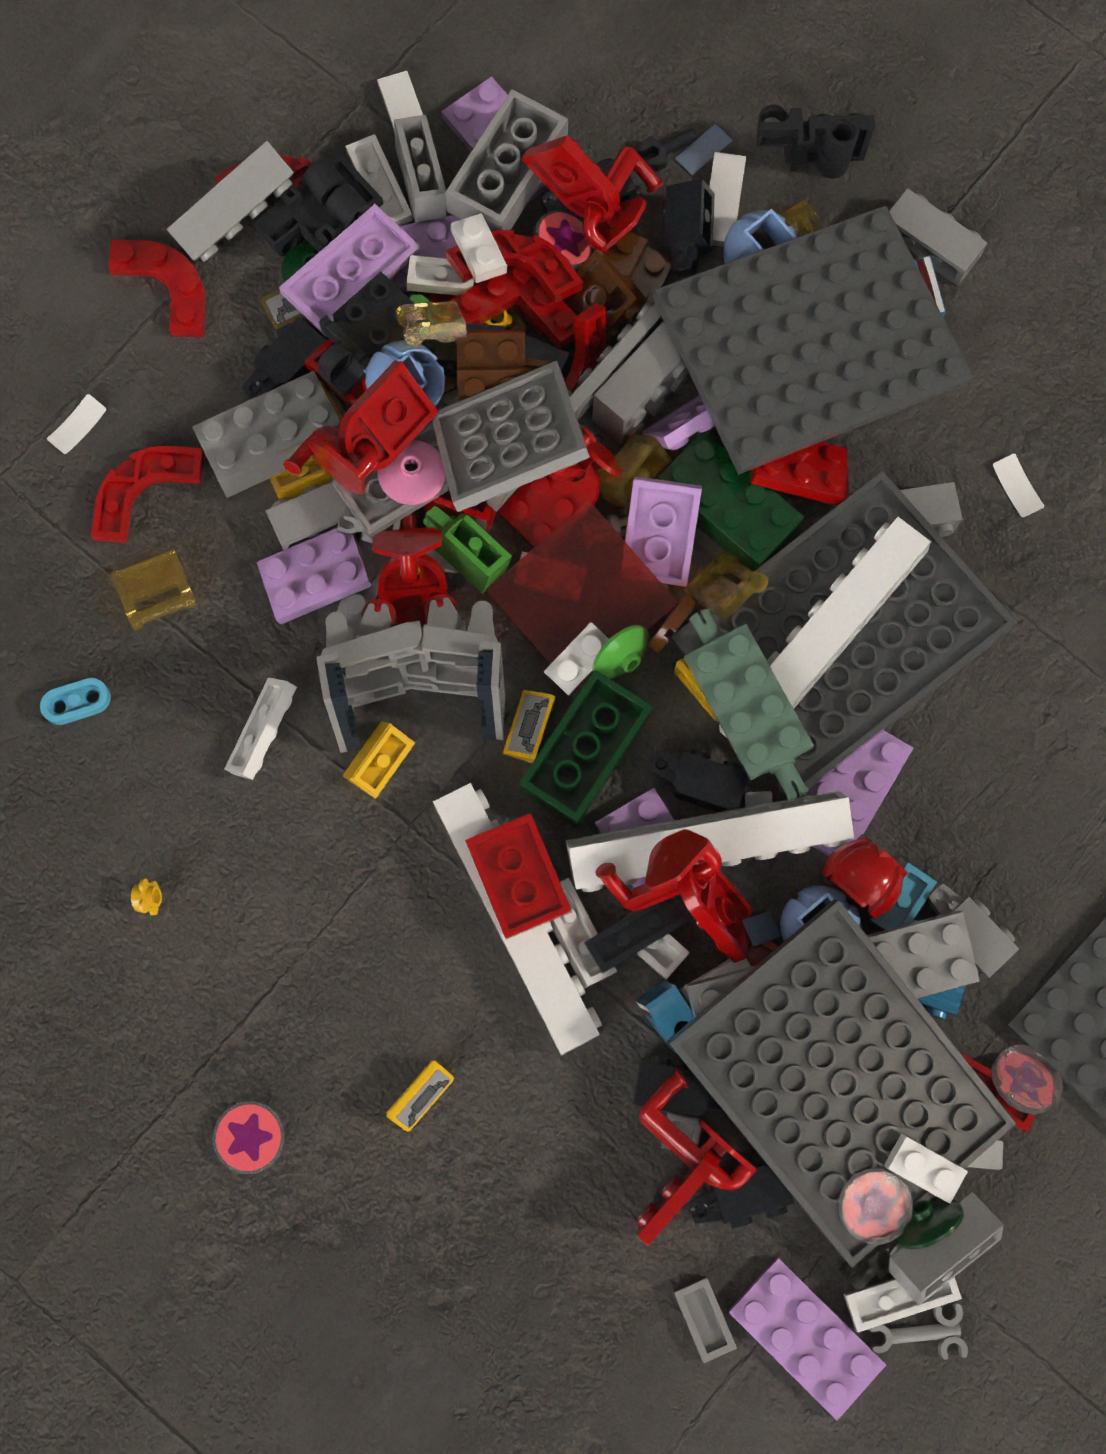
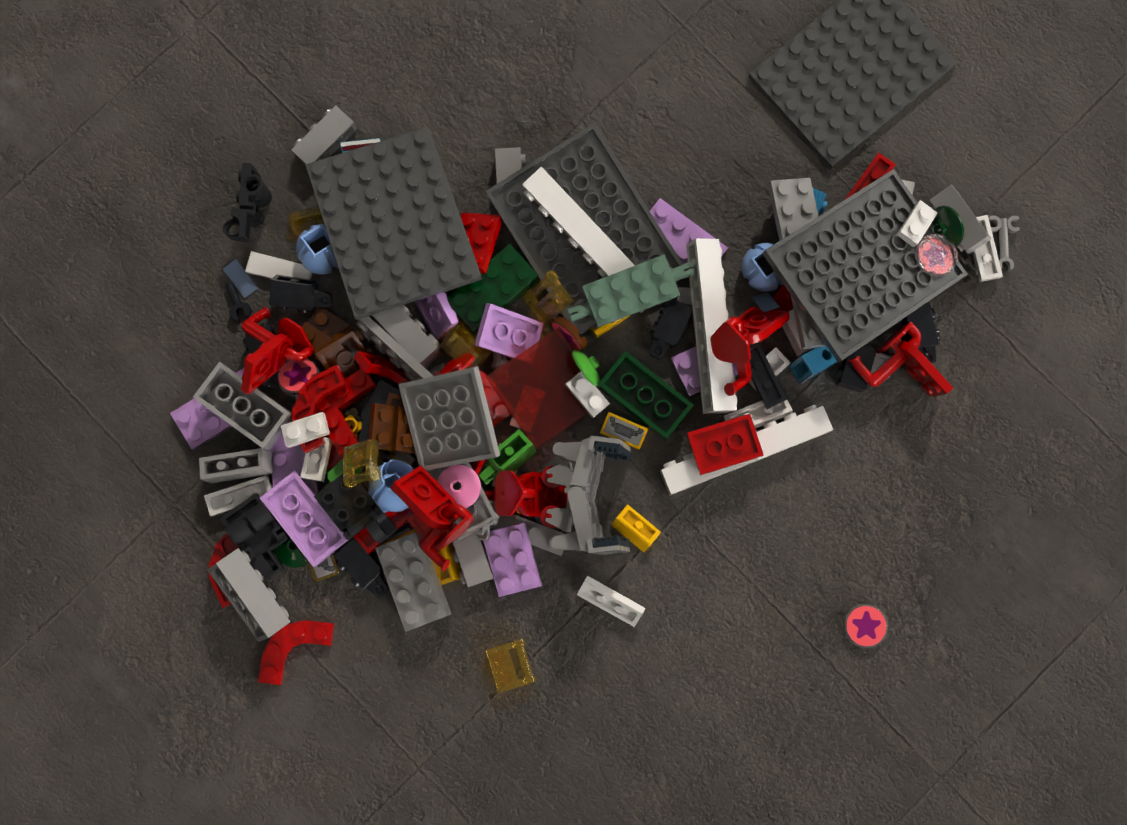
camera: 80 degrees left, 5 degrees up
(76, 699) = (581, 721): medium azure plate -> none
(77, 424) = (388, 712): white sticker -> none
(134, 475) = (432, 677): red plate -> none
(146, 897) = (713, 681): yellow plate -> none
(399, 96) = (180, 476): white tile -> none
(420, 1096) = (848, 519): slope -> none
(704, 1319) = (988, 363): light grey tile -> none
(807, 1338) = (1002, 306): lavender plate -> none
(866, 875) = (741, 235): red piece -> none
(914, 893) = (754, 217): medium azure plate -> none
(990, 943) = (784, 168): light grey hinge -> none
(1017, 485) = (497, 111): white sticker -> none
(1026, 1080) = (866, 160): clear tile -> none

